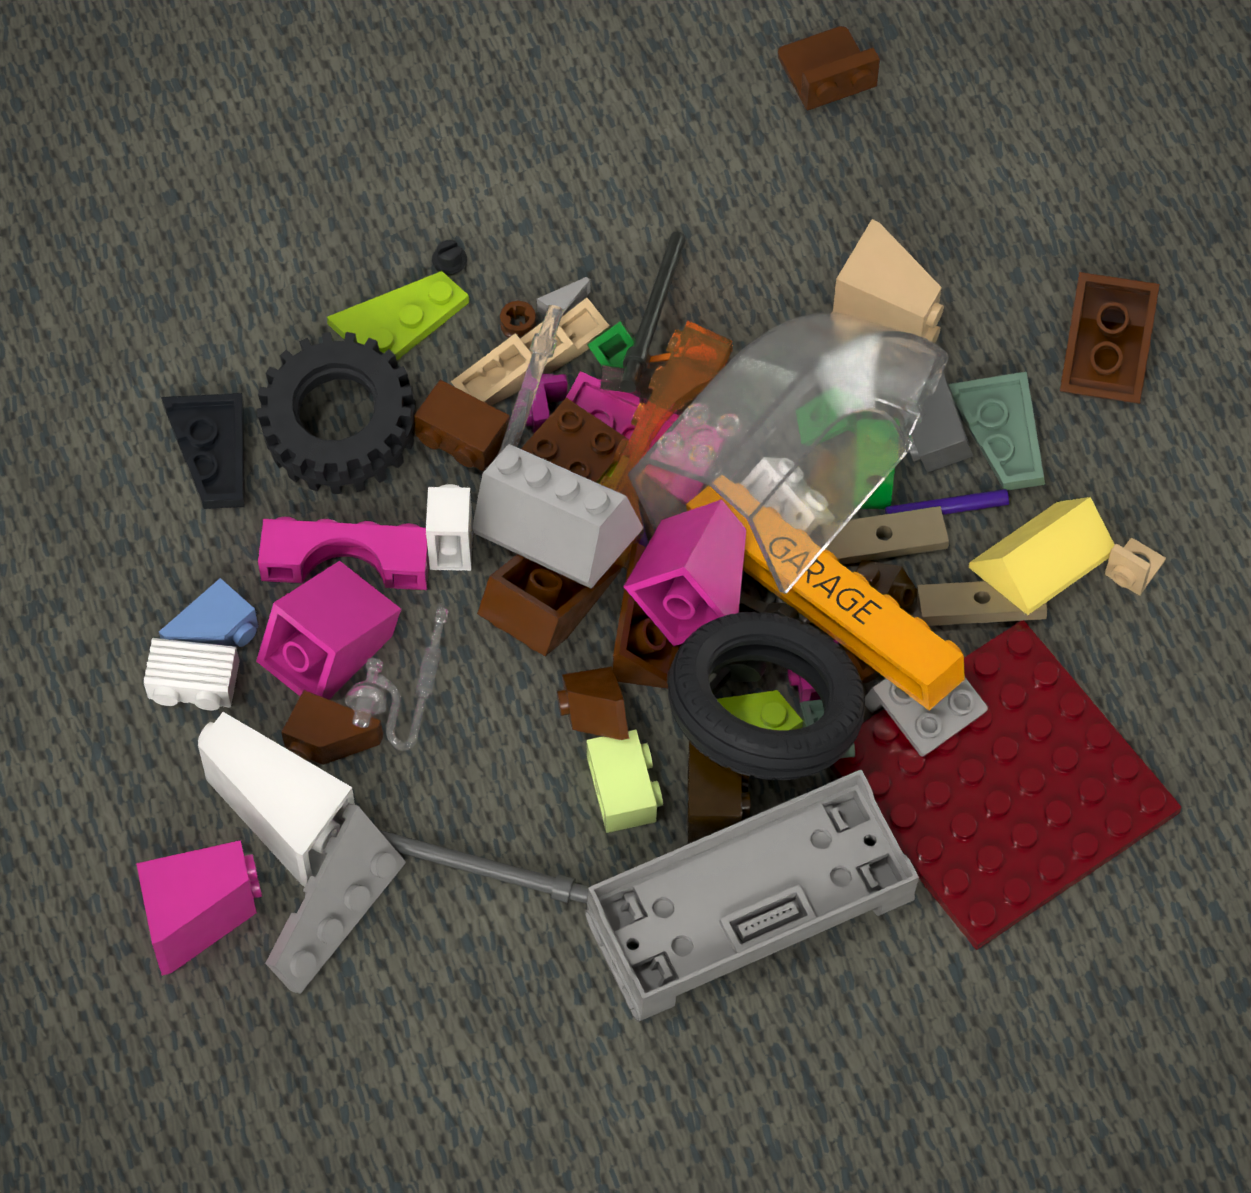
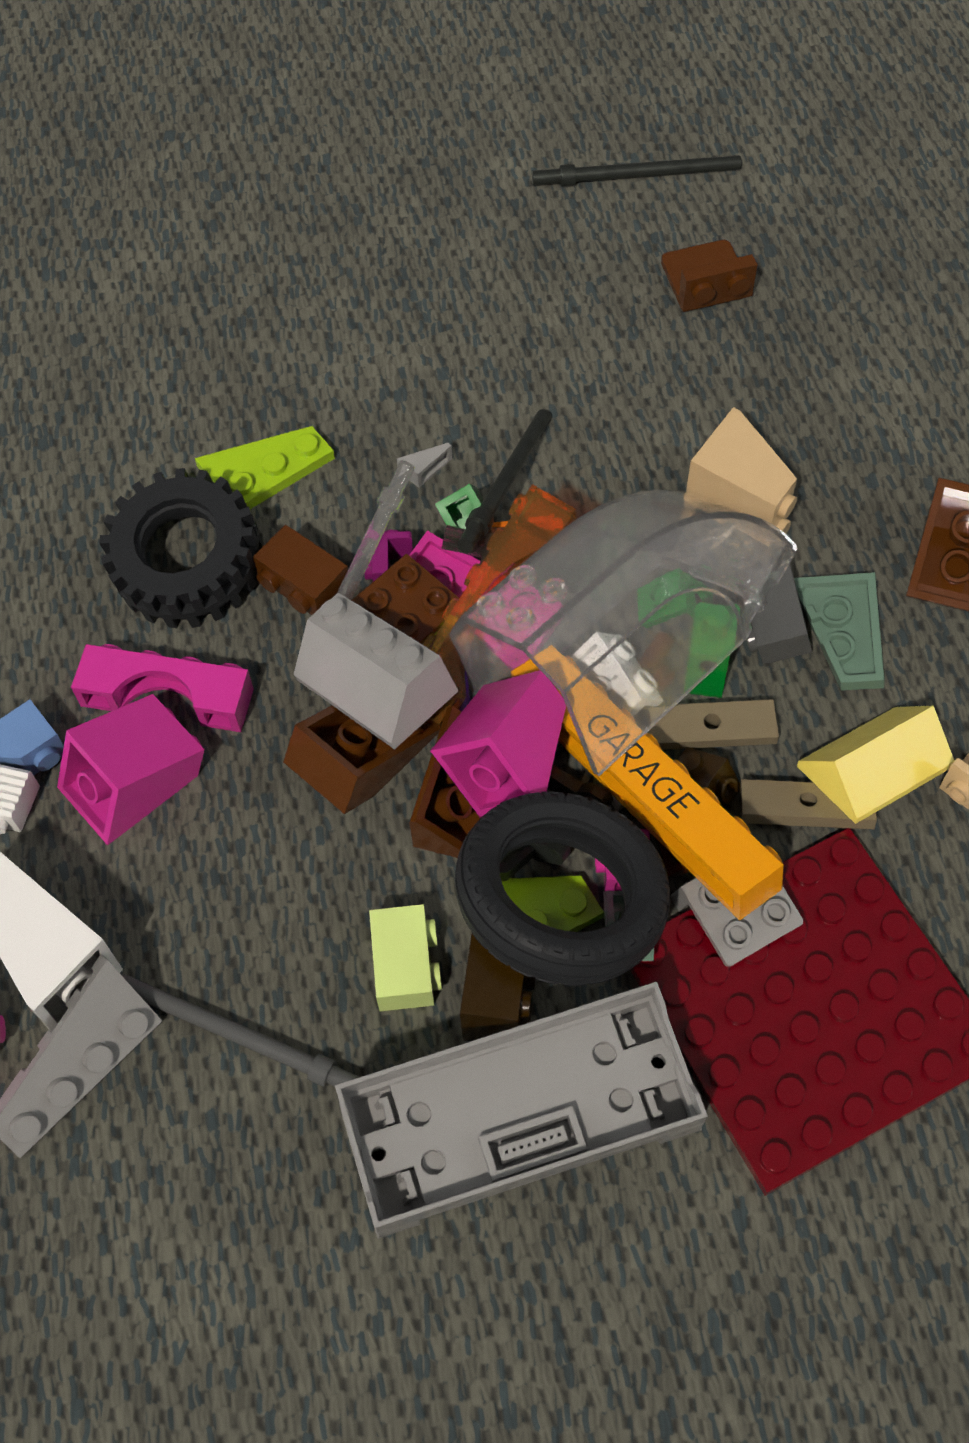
camera: 10 degrees right, 0 degrees up
(212, 445) = (59, 569): black wing -> none
(325, 730) = (106, 868): reddish brown slope -> none
(369, 698) = (150, 838): clear piece -> none
(449, 257) = (322, 414): black piece -> none
(449, 528) = (267, 671): white brick -> none
(504, 368) = (346, 525): tan slope -> none
(512, 310) = (372, 468): reddish brown bush -> none
(594, 703) = (384, 870): reddish brown slope -> none
(957, 503) = (791, 699): dark purple bar -> none

